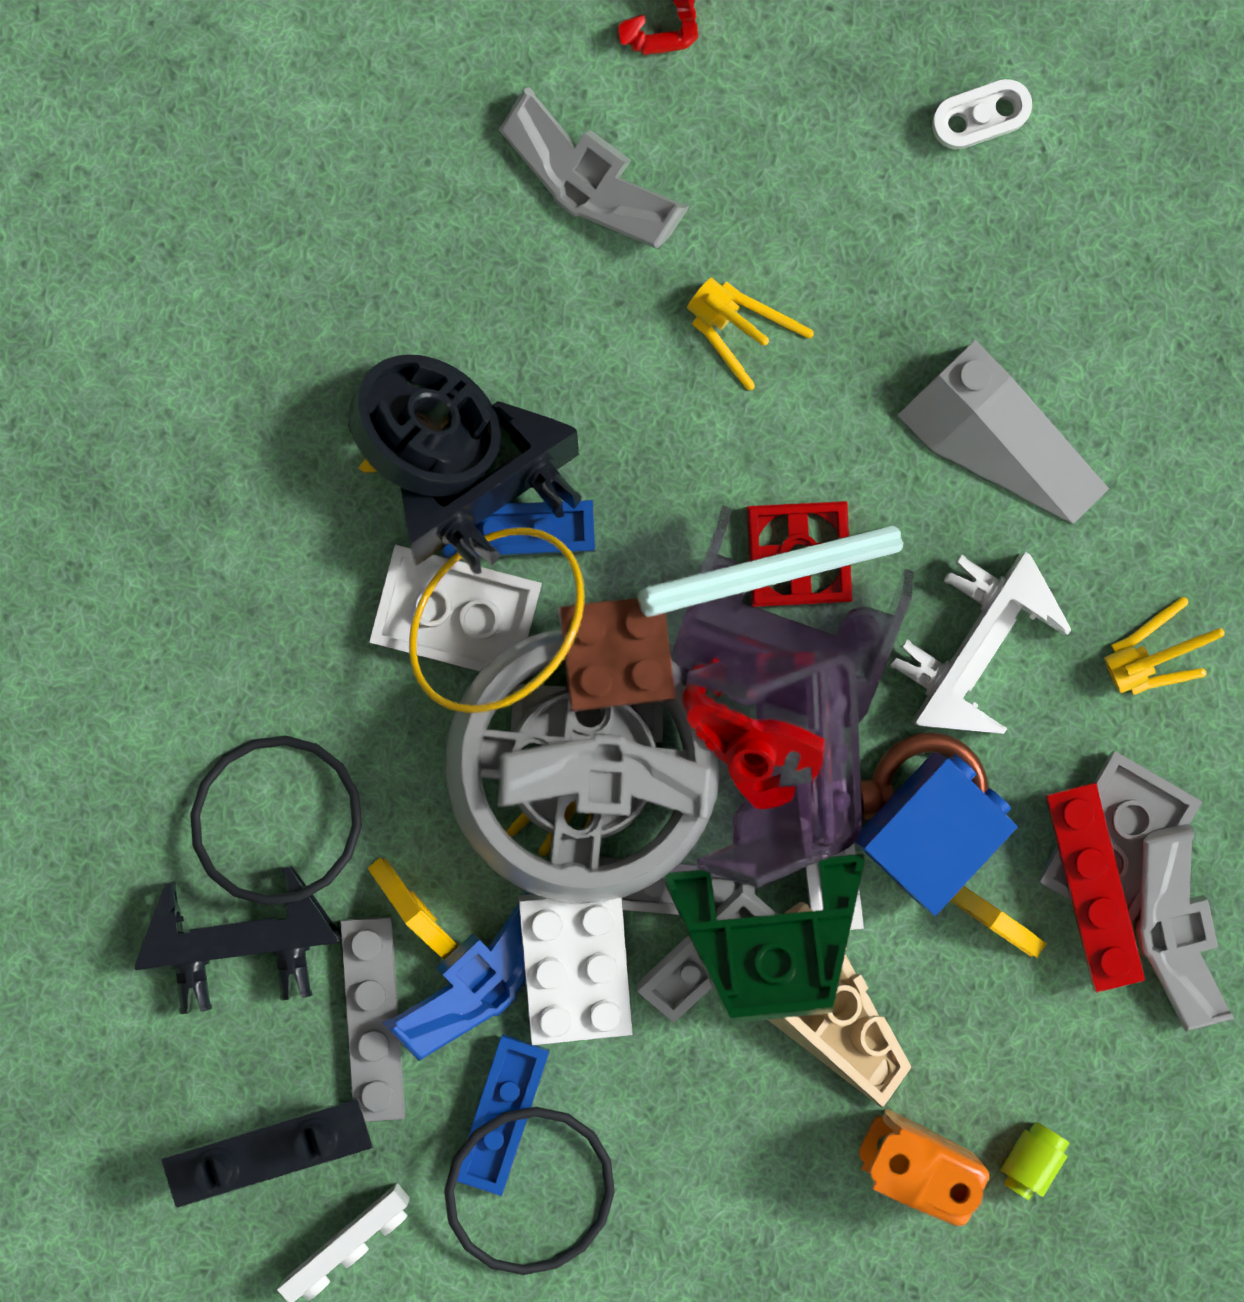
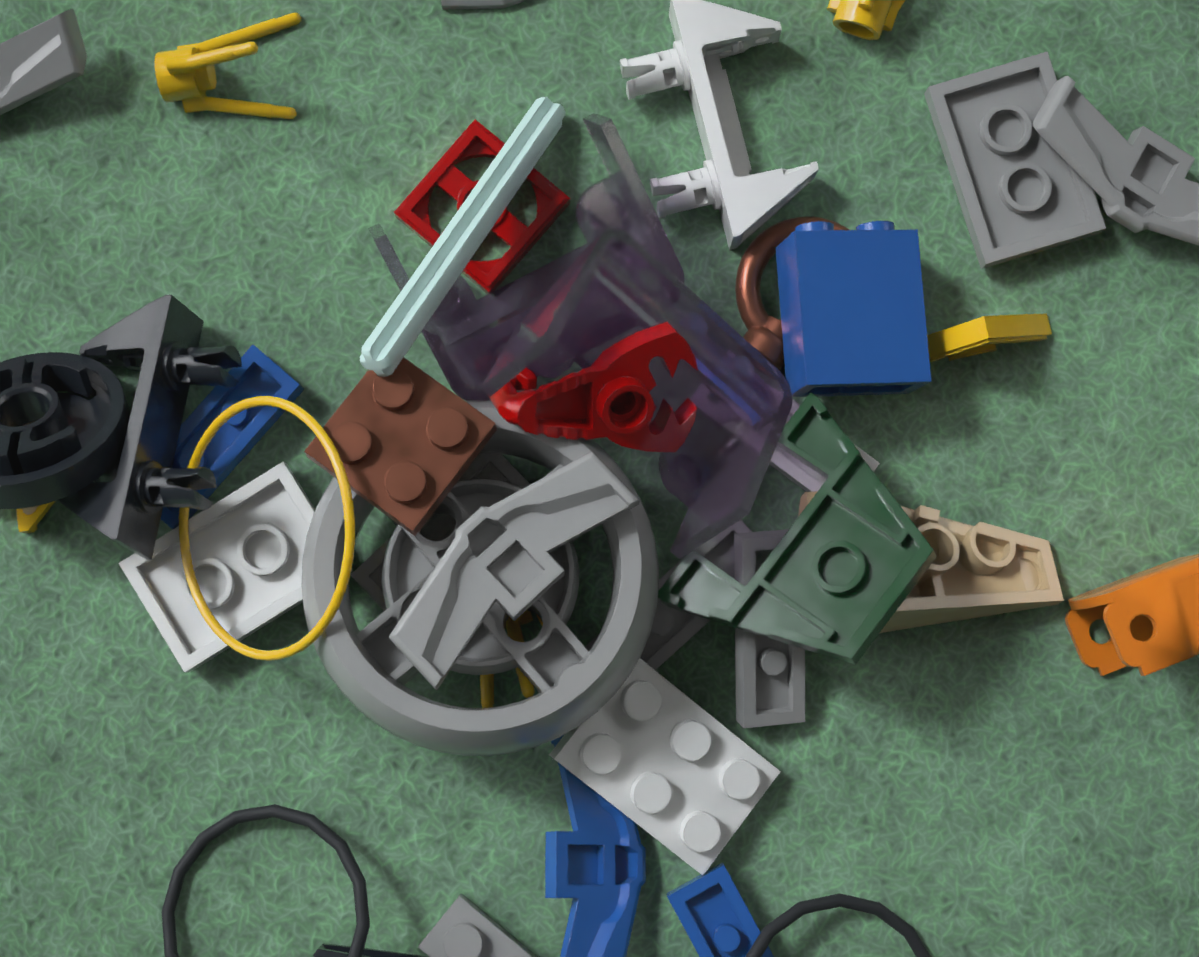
camera: 50 degrees left, 5 degrees down
(412, 909) = (470, 868): yellow tile -> none
(1094, 887) = (1038, 216): red plate -> none

